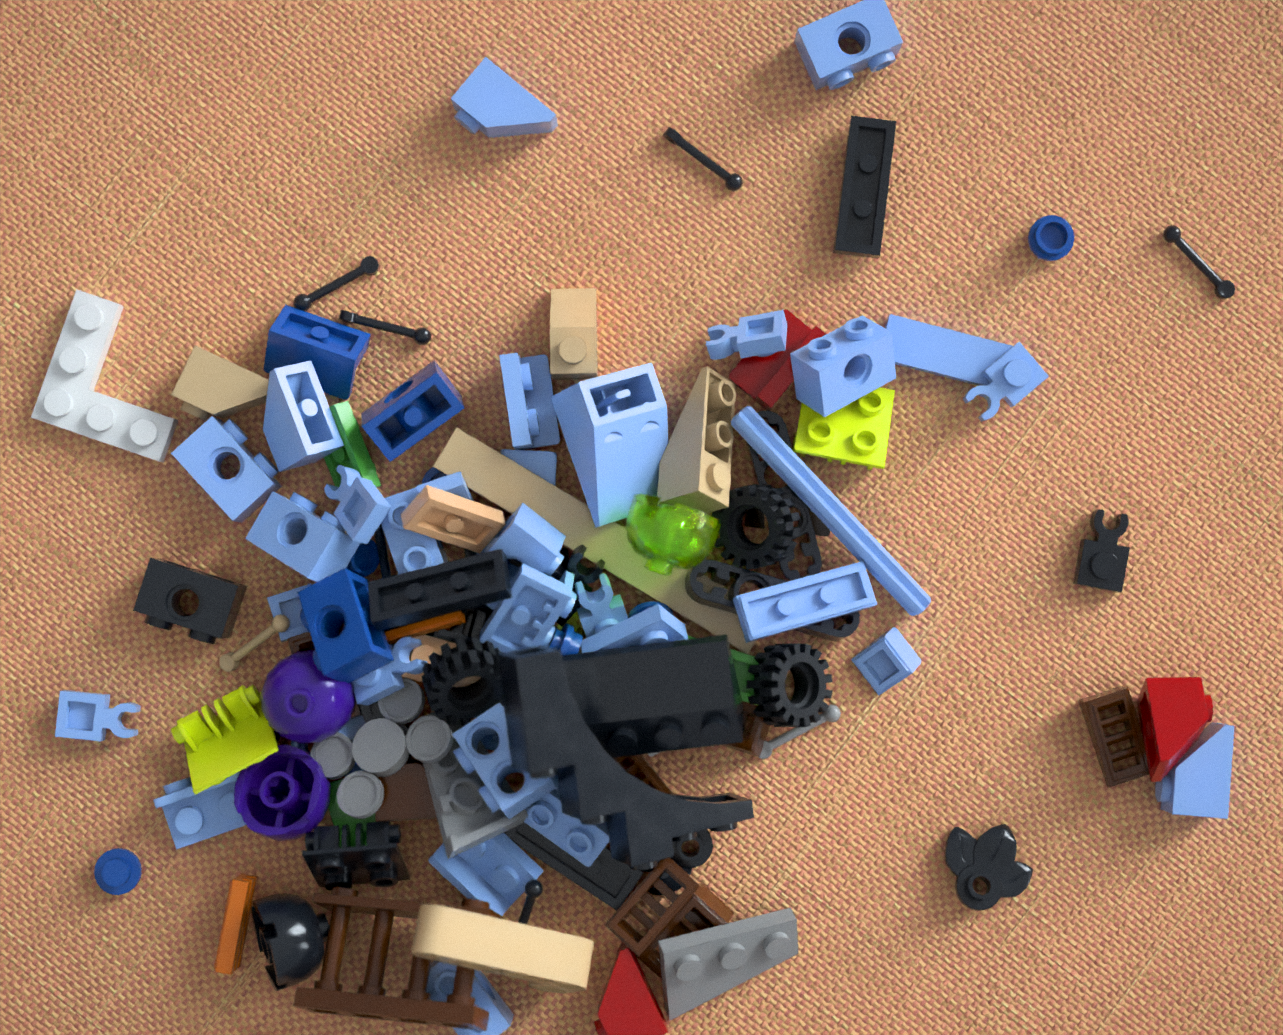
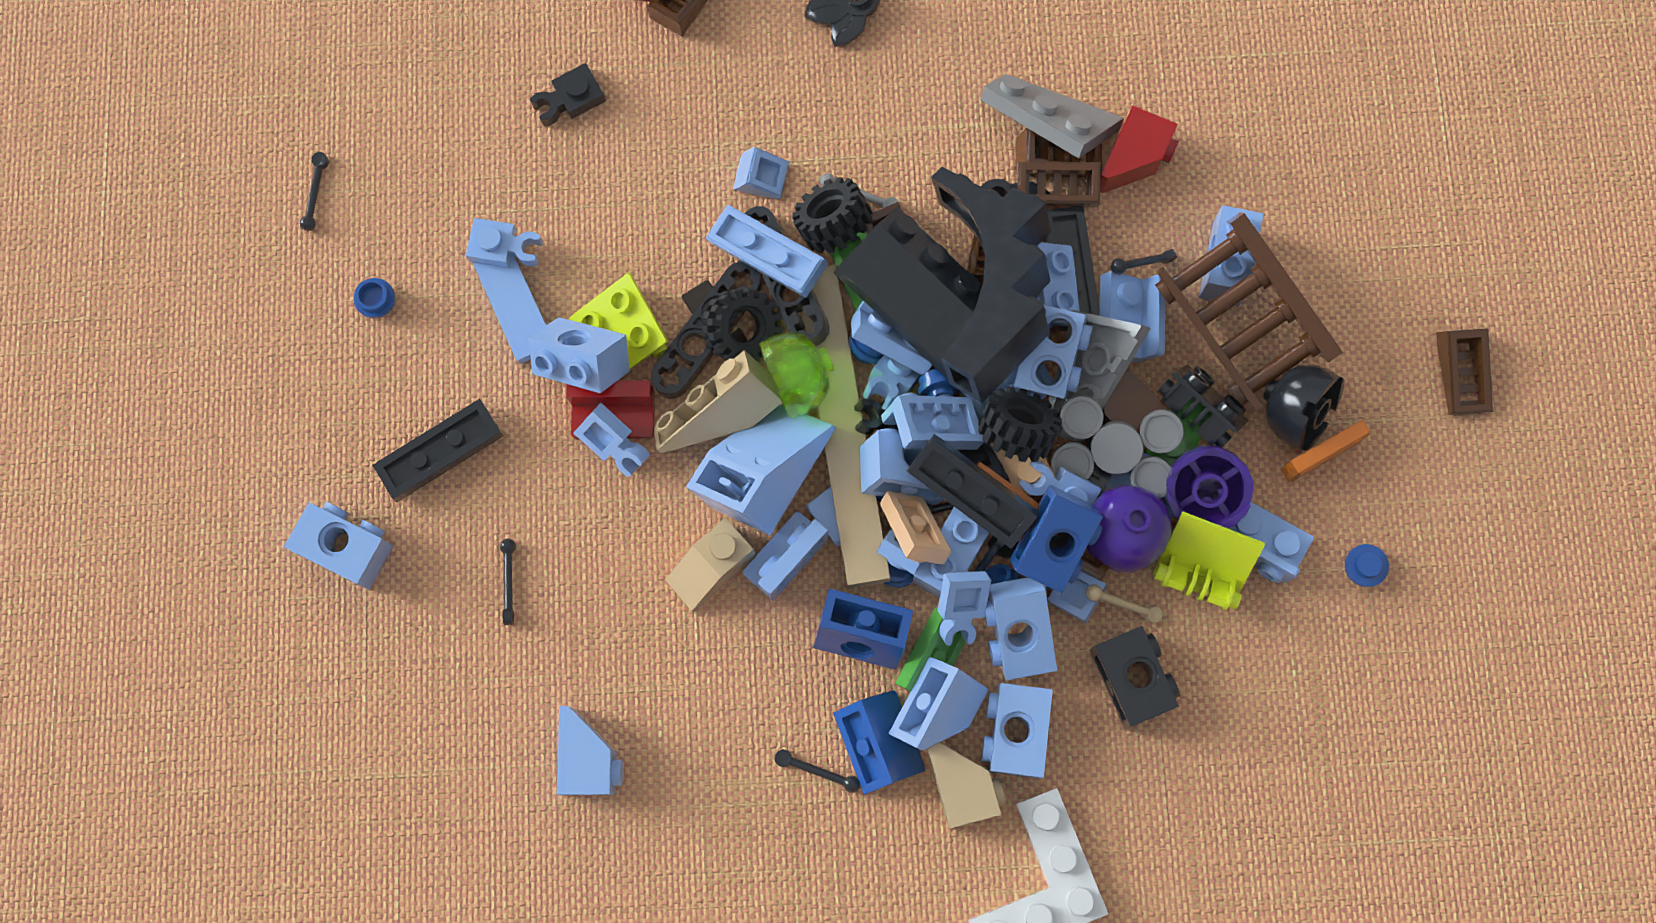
camera: 125 degrees left, 10 degrees down
(88, 716) = (1281, 680): light blue plate -> none
(421, 335) = (803, 676): black hinge -> none
(503, 947) = (1176, 245): tan beam -> none
(830, 510) = (688, 289): light blue axle -> none

